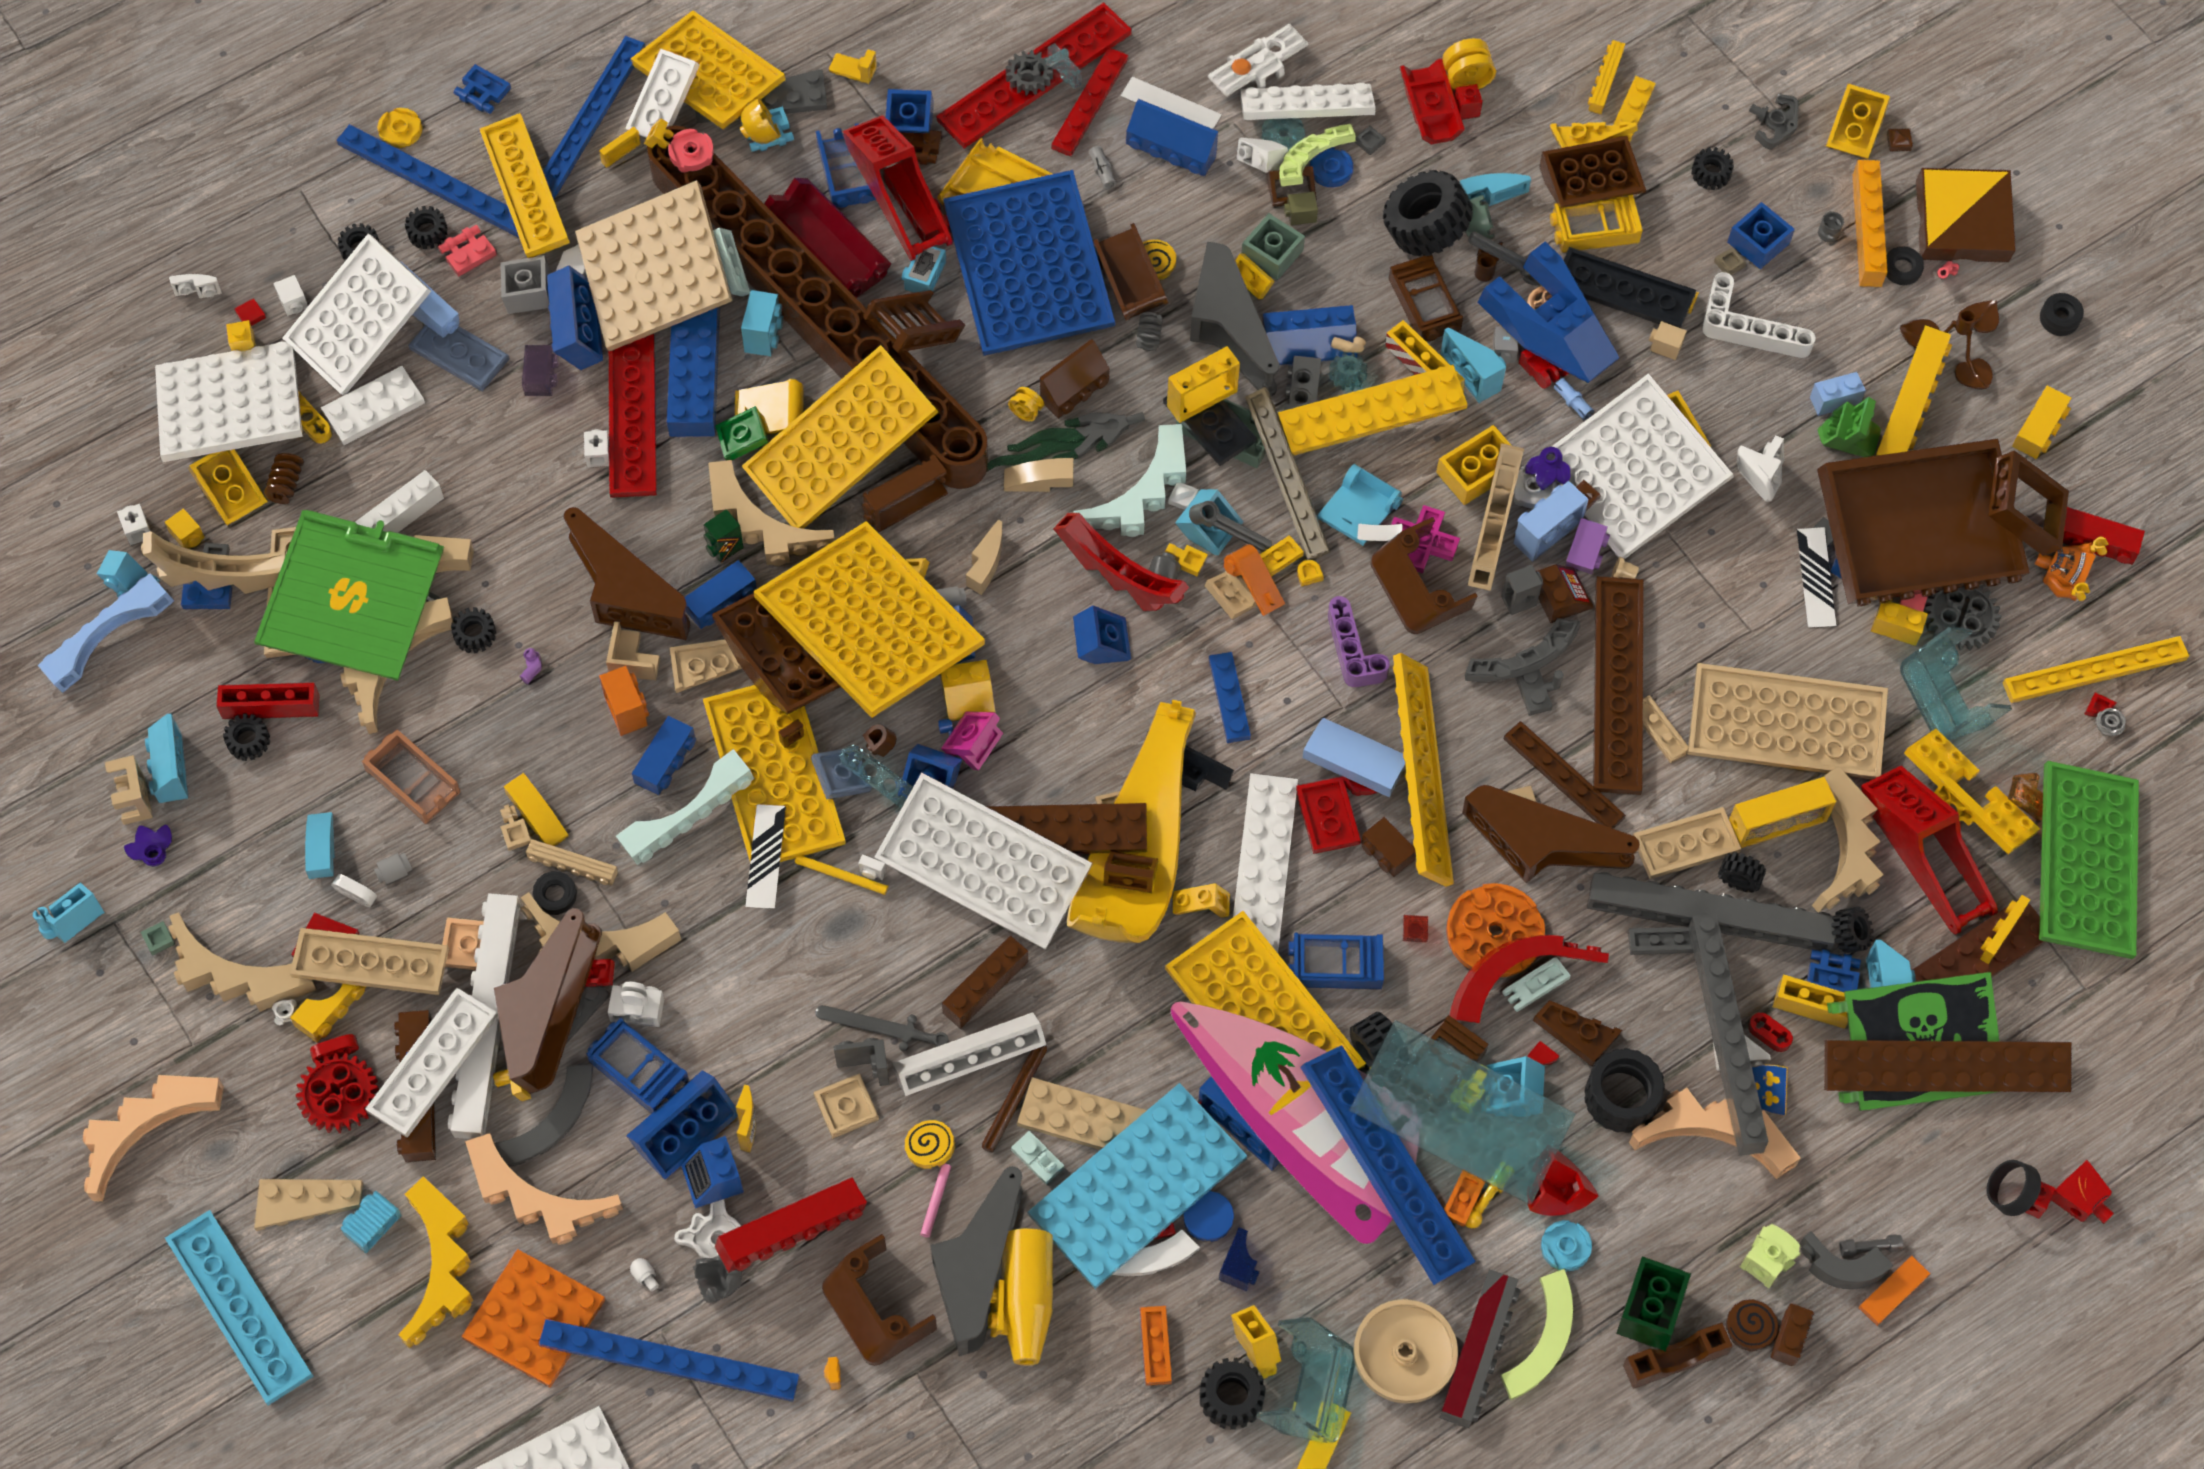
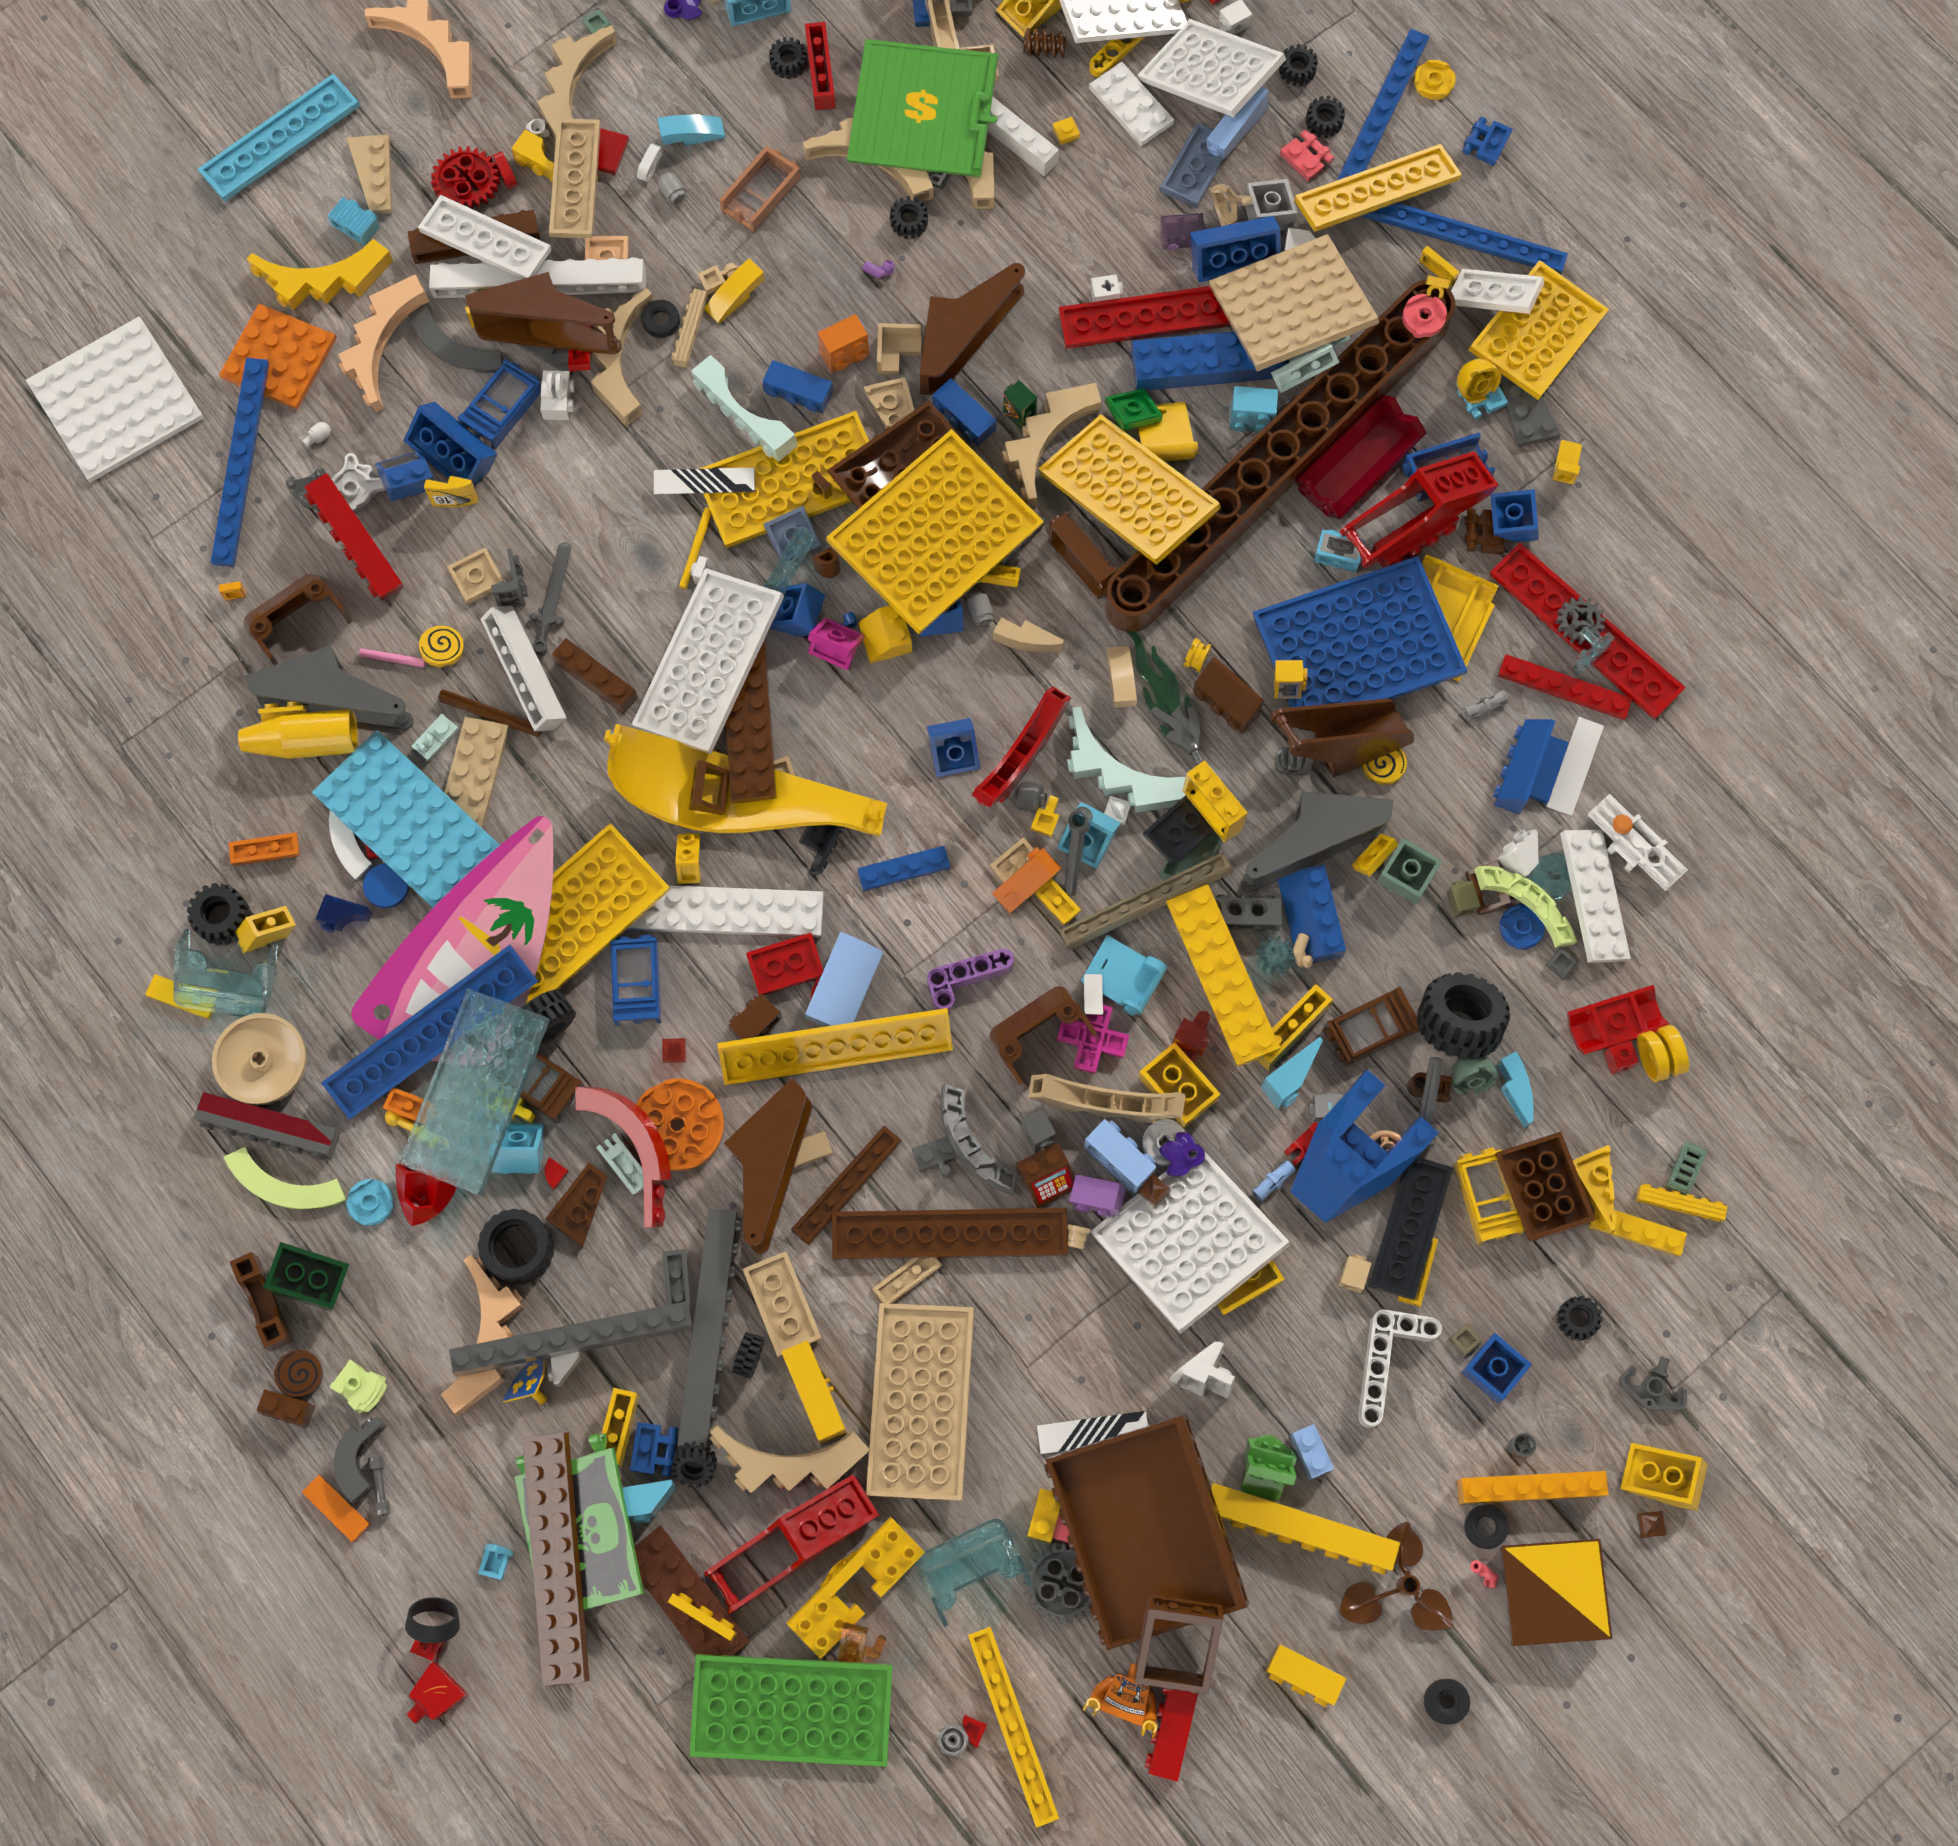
camera: 85 degrees right, 10 degrees up
(393, 470) = (1066, 130): none -> yellow plate
(530, 327) = (1220, 203): none -> tan helmet
(914, 336) = (1248, 544): reddish brown fence -> none
(1070, 317) = (1289, 679): none -> yellow brick
(1309, 573) = (1046, 933): yellow tile -> none
(1429, 445) = (1192, 1036): none -> clear red brick
(1576, 63) = (1692, 1149): none -> sand green slope
(1770, 1031) = (594, 1392): red beam -> none
(1947, 1134) = (495, 1561): none -> medium azure tile

